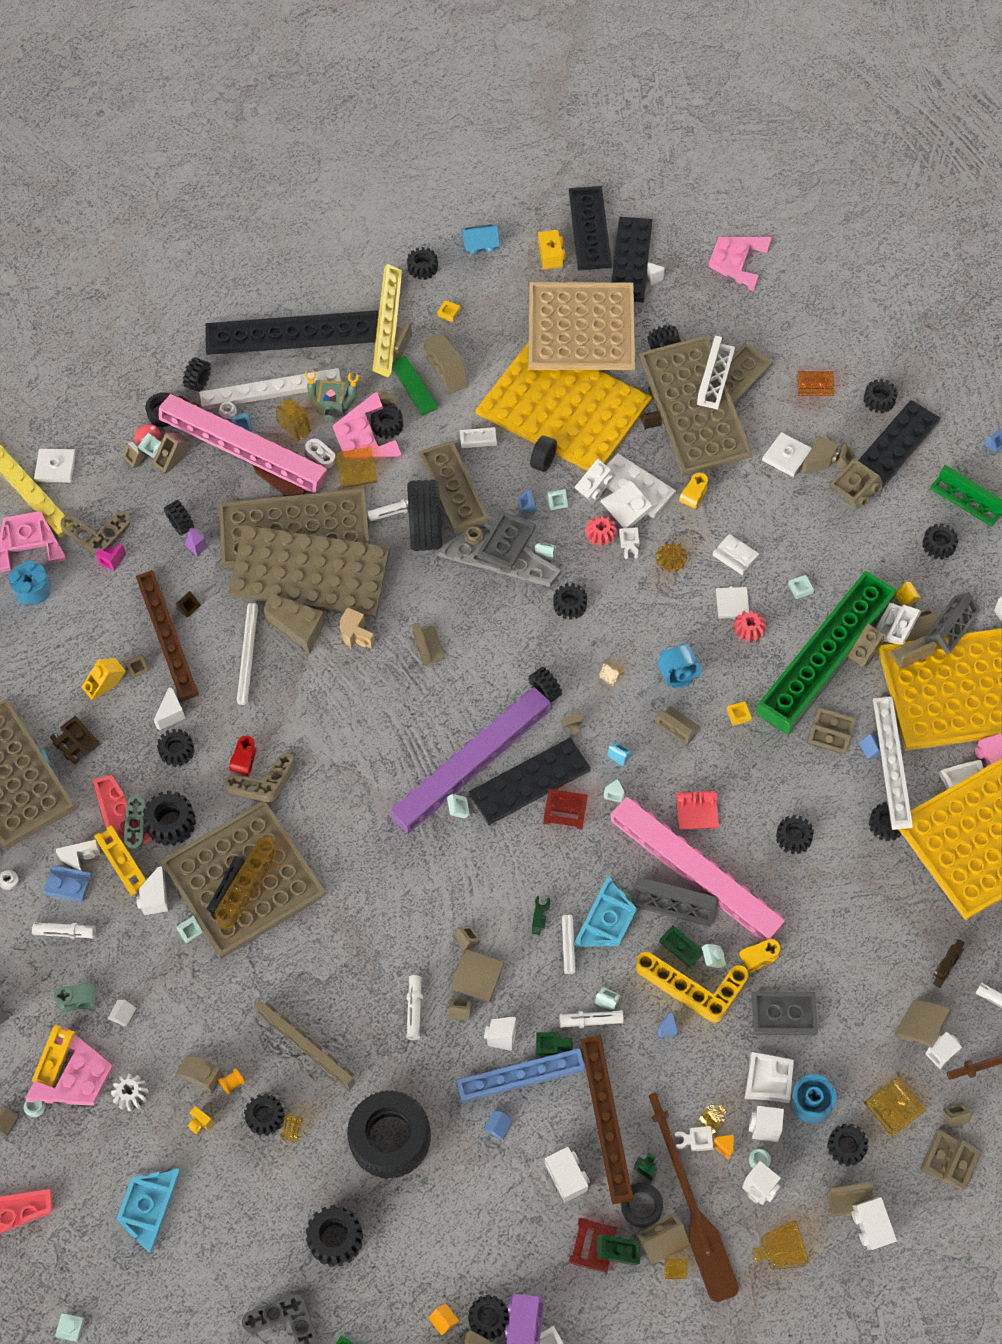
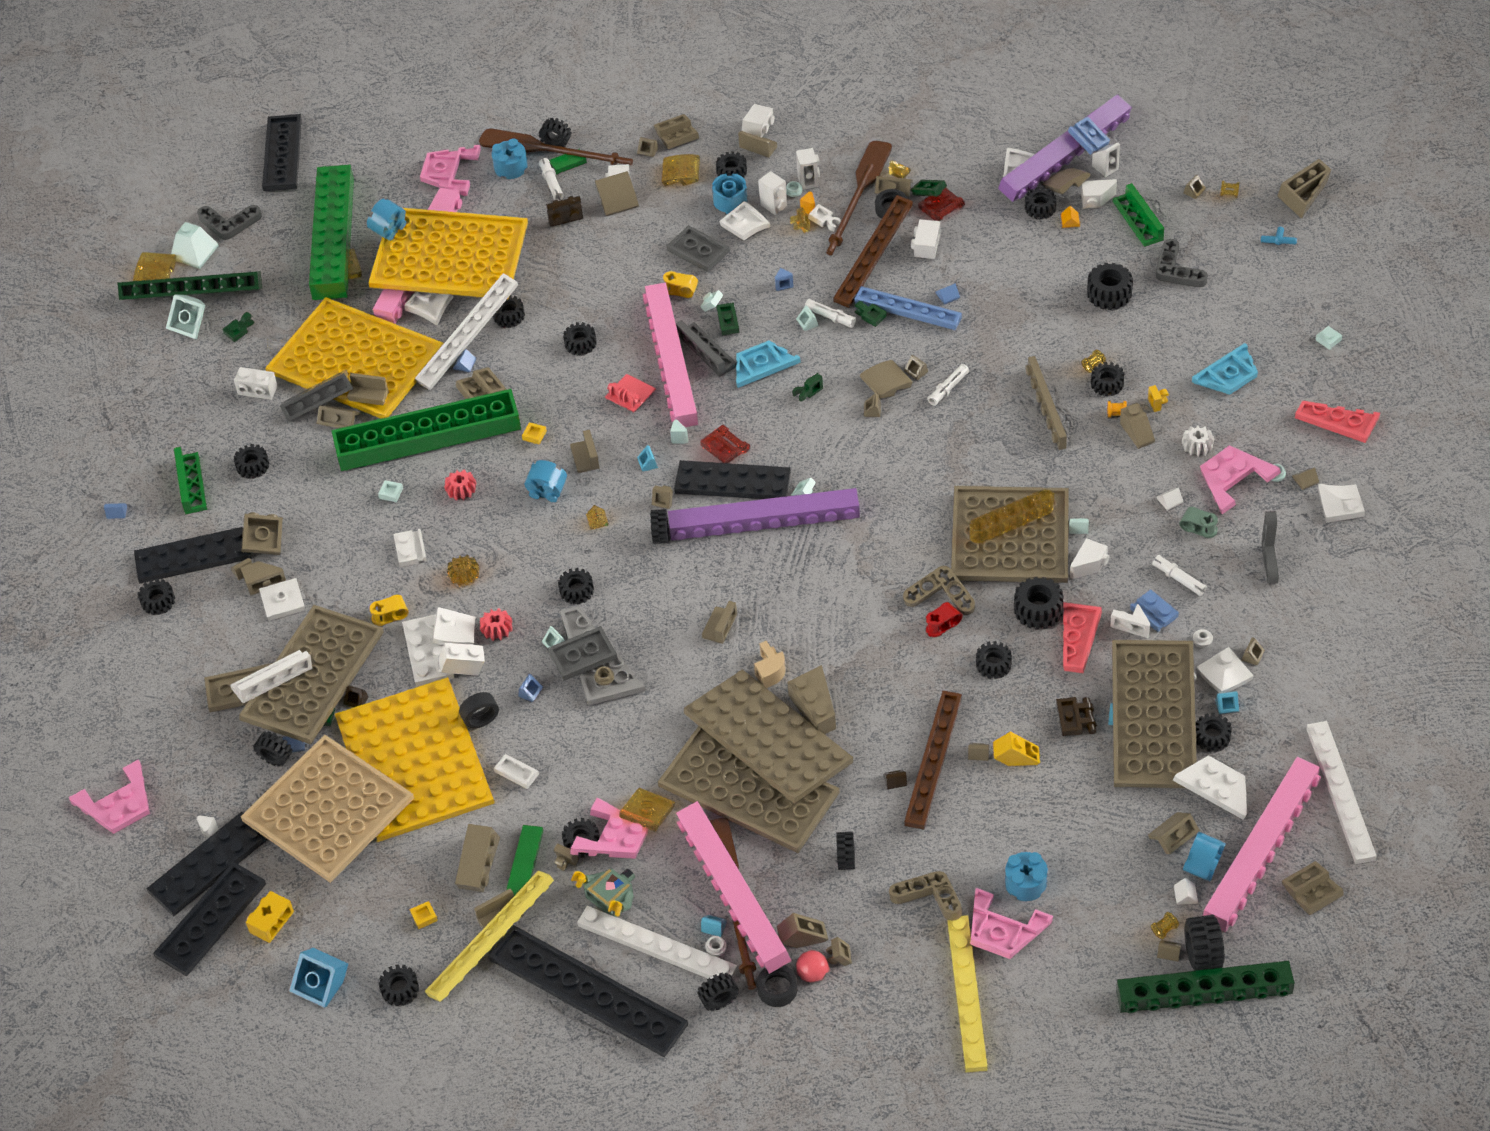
camera: 140 degrees left, 10 degrees down
(53, 1056) = (1241, 489): yellow plate -> none
(55, 465) = (923, 995): white plate -> none
(111, 557) = (932, 860): dark pink panel -> none
(120, 860) = (1100, 592): yellow plate -> none
(139, 831) = (1070, 621): sand green beam -> none
(150, 445) = (817, 944): light aqua plate -> none
(169, 711) = (978, 690): white slope -> none
(195, 542) = (845, 823): medium lavender slope -> none
(226, 882) = (1021, 528): black pin -> none
(247, 654) = (875, 704): white axle -> none
(290, 414) = (664, 883): clear yellow torso -> none
(323, 453) = (666, 846): white plate -> none
(385, 1105) = (1028, 333): black tyre -> none
(388, 510) = (638, 748): white pin -> none
(424, 515) = (634, 699): black tyre -> none
(455, 486) = (580, 733): dark tan plate -> none
(501, 1033) = (899, 329): white slope -> none
(557, 499) = (502, 677): light aqua slope -> none
(568, 944) = (803, 364): white axle -> none
(629, 540) = (481, 604): white plate -> none
(646, 1166) = (871, 218): dark green plate -> none
(693, 989) = (740, 275): yellow beam -> none
(731, 601) = (451, 516): white piece -> none
(783, 1248) = (825, 141): clear yellow torso -> none
(815, 383) = (192, 639): clear orange plate -> none
(867, 645) = (390, 407): dark tan brick -> none
(898, 623) = (355, 409): white slope -> none
(907, 594) = (321, 438): yellow tile -> none

